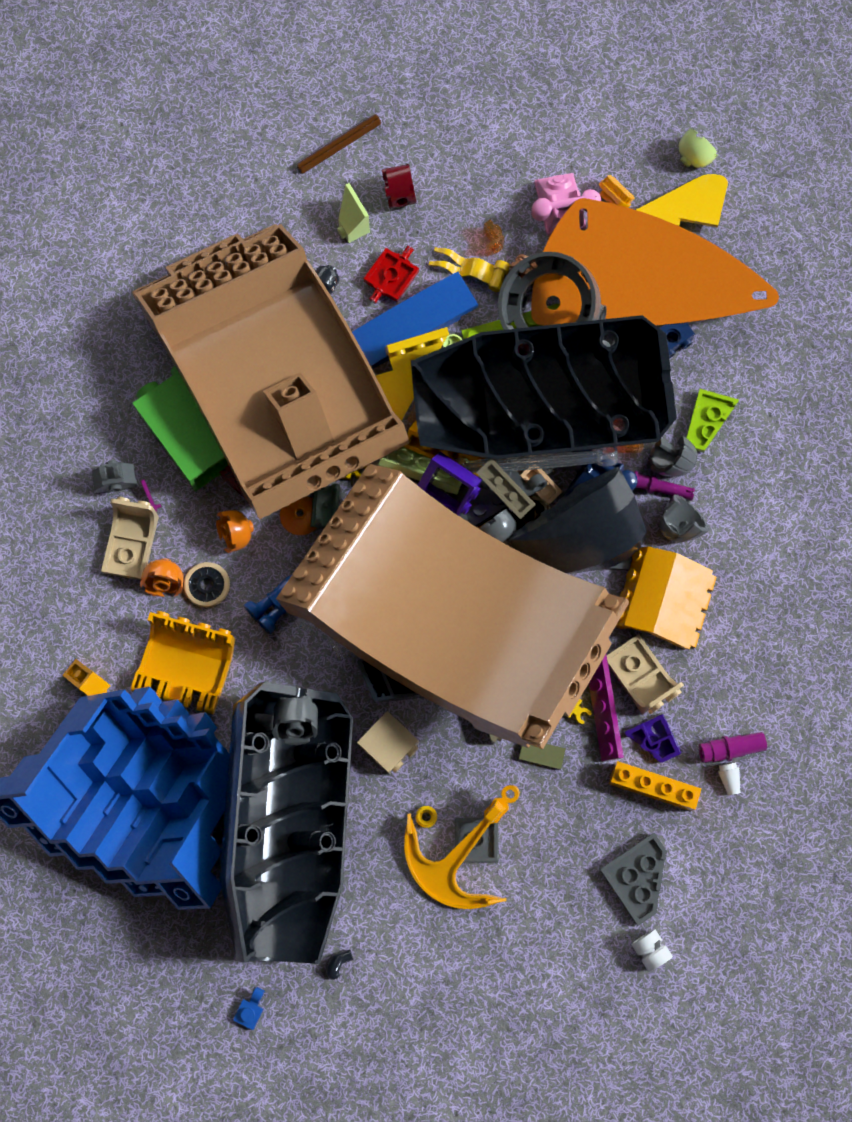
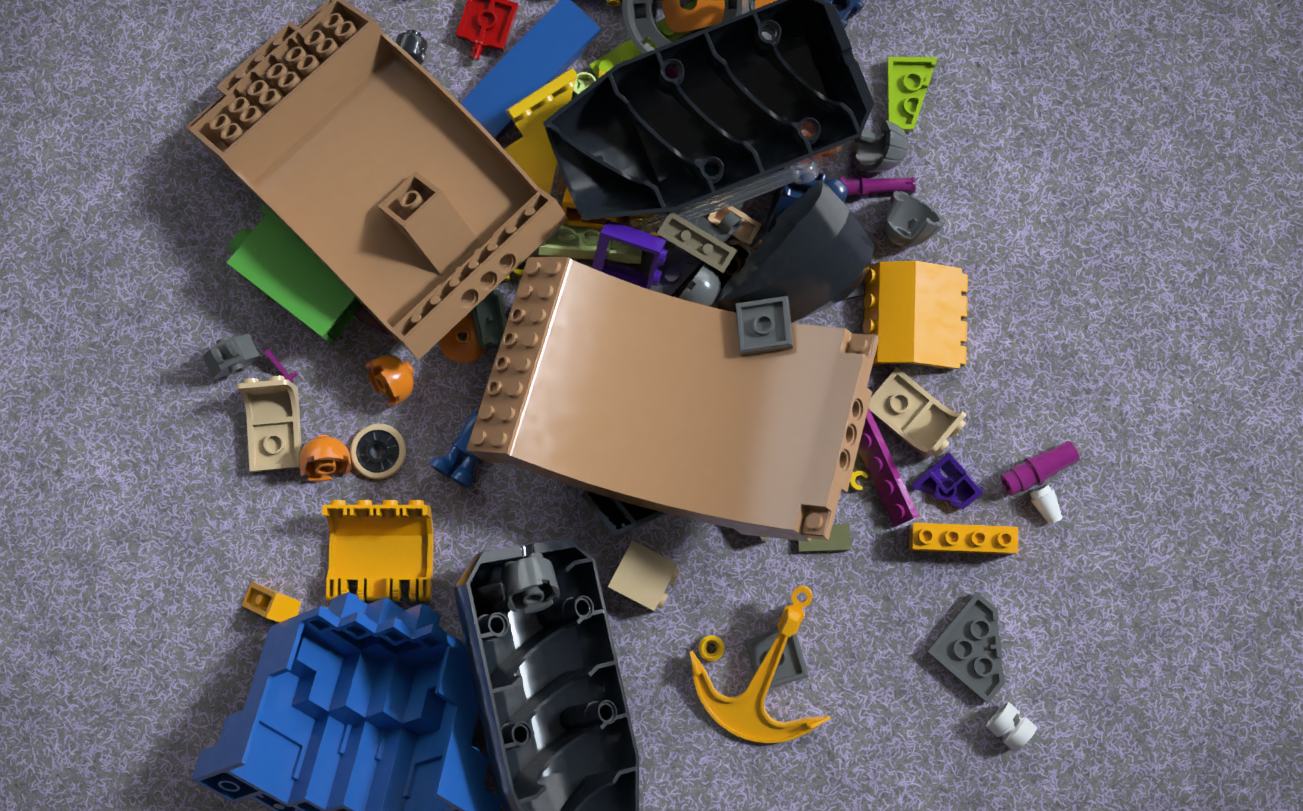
camera: 10 degrees left, 5 degrees up
(540, 568) = (764, 325): none -> dark grey tile

